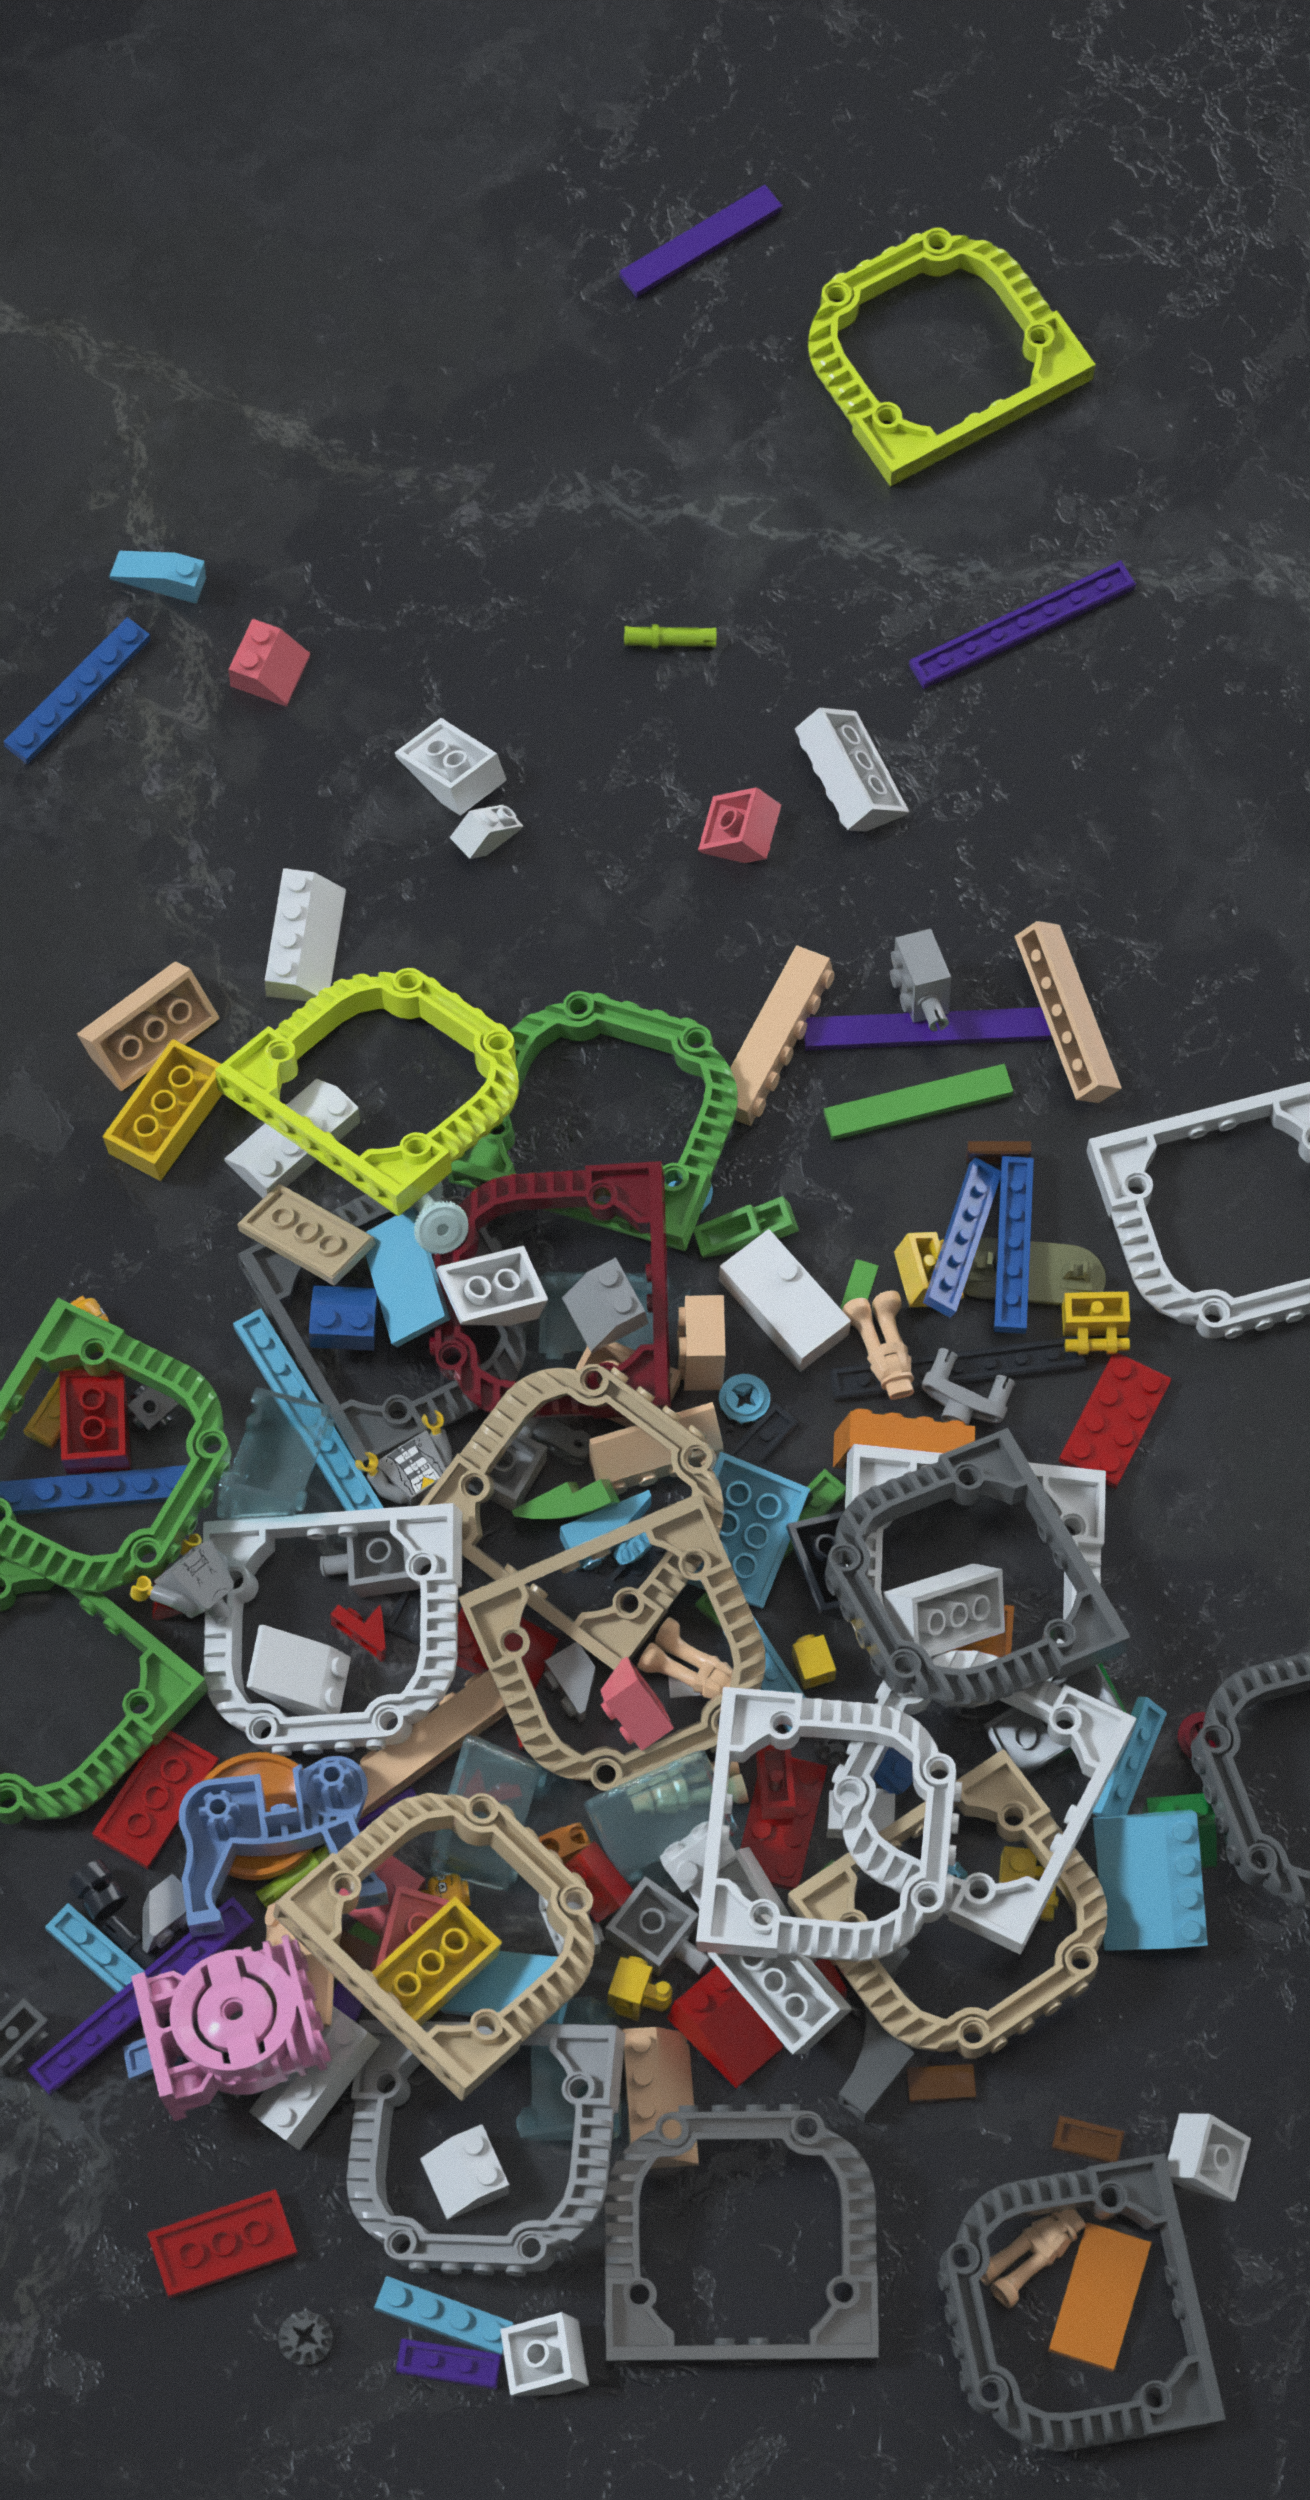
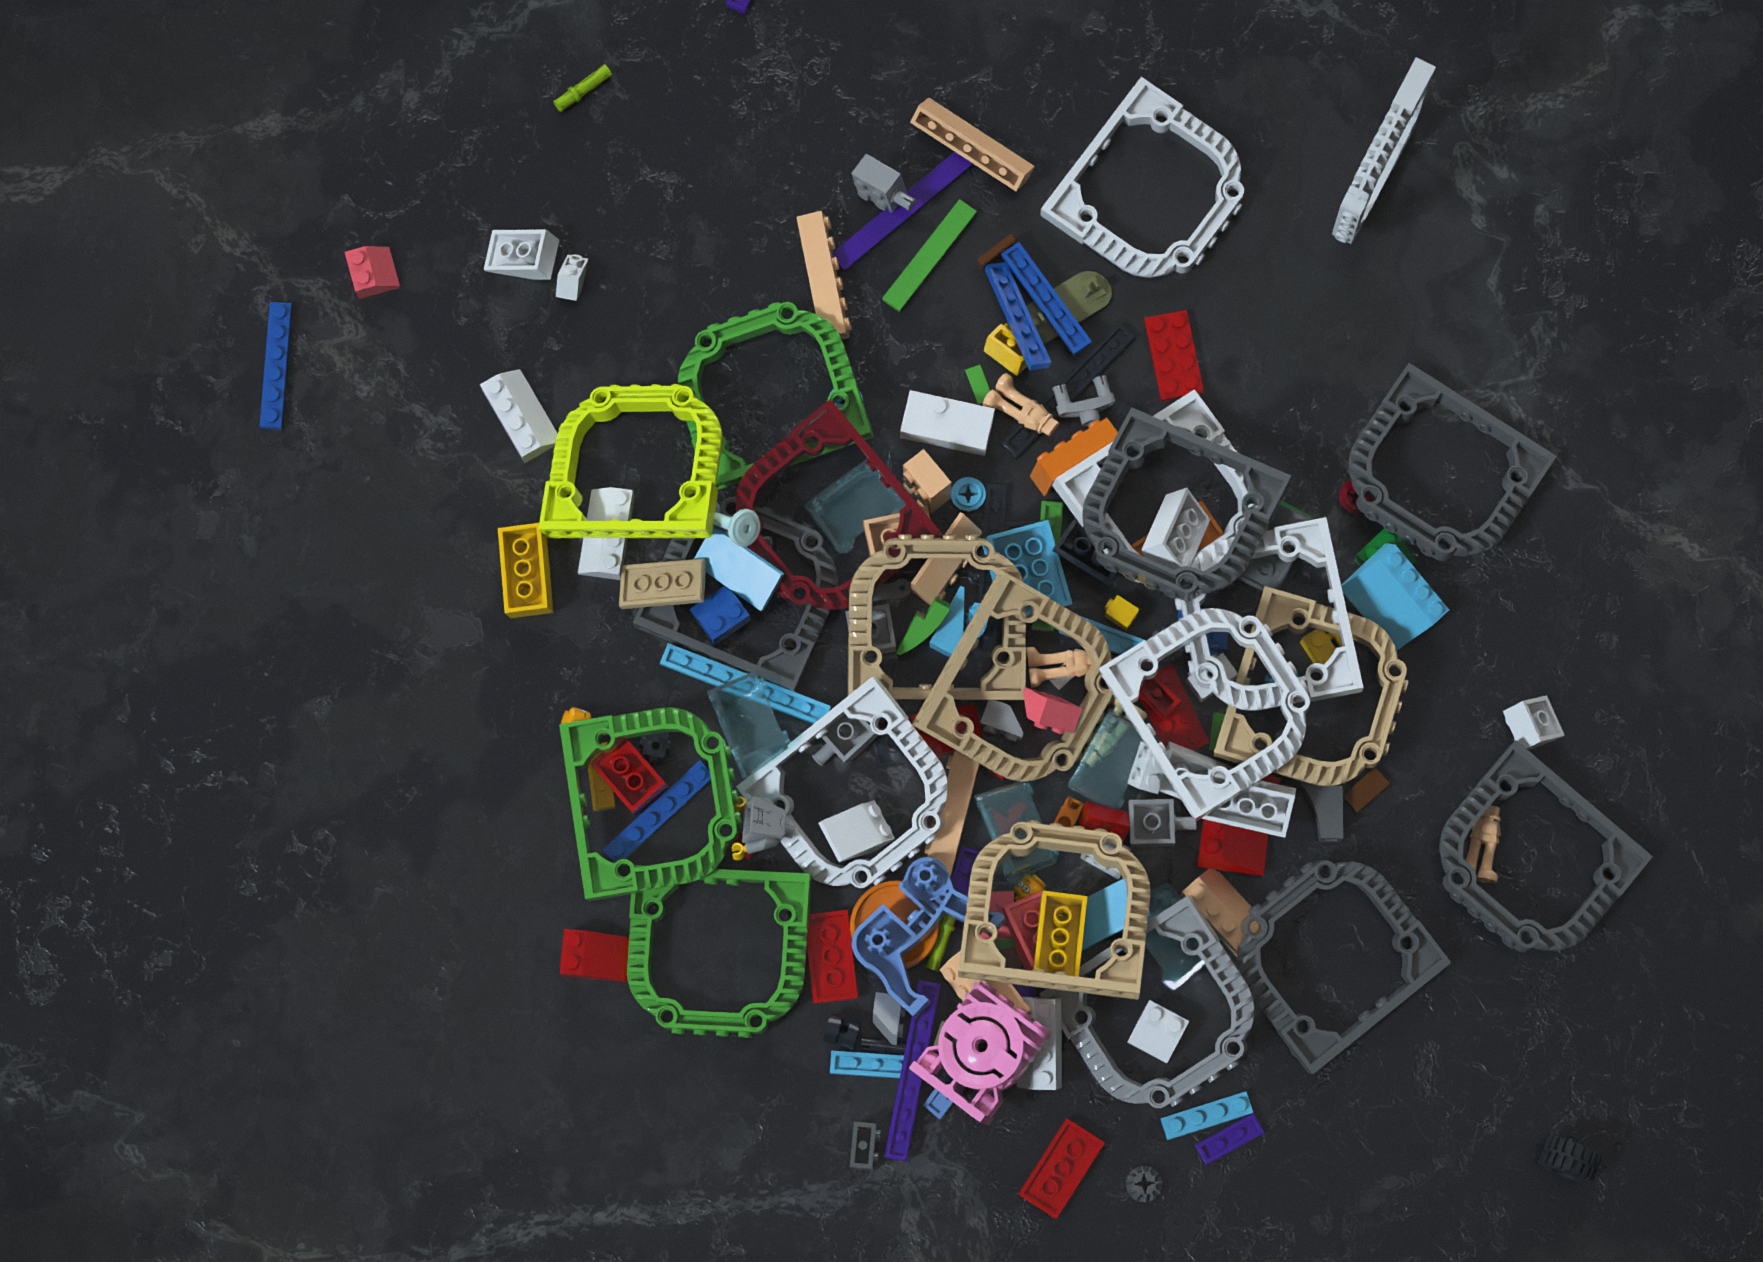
camera: 30 degrees left, 10 degrees up
(140, 1027) = (474, 529): light nougat slope -> none
(161, 573) = (267, 262): medium azure slope -> none
(367, 1635) = (874, 780): red slope -> none
(412, 1468) = (824, 668): torso -> none
(494, 1288) = (793, 538): white slope -> none
(544, 2356) = (1278, 1097): white slope -> none
(605, 1306) = (865, 504): light grey slope -> none
(633, 1989) = (1168, 864): yellow brick -> none
(740, 826) = (709, 170): coral slope -> none
(744, 1225) = (893, 398): bright green slope -> none
(850, 769) = (744, 92): white slope -> none
(1087, 2140) = (1464, 761): reddish brown tile -> none
(1096, 1315) = (1120, 305): yellow brick -> none
(1099, 2297) = (1535, 840): orange tile -> none
(1132, 1763) = (1319, 509): medium azure plate -> none

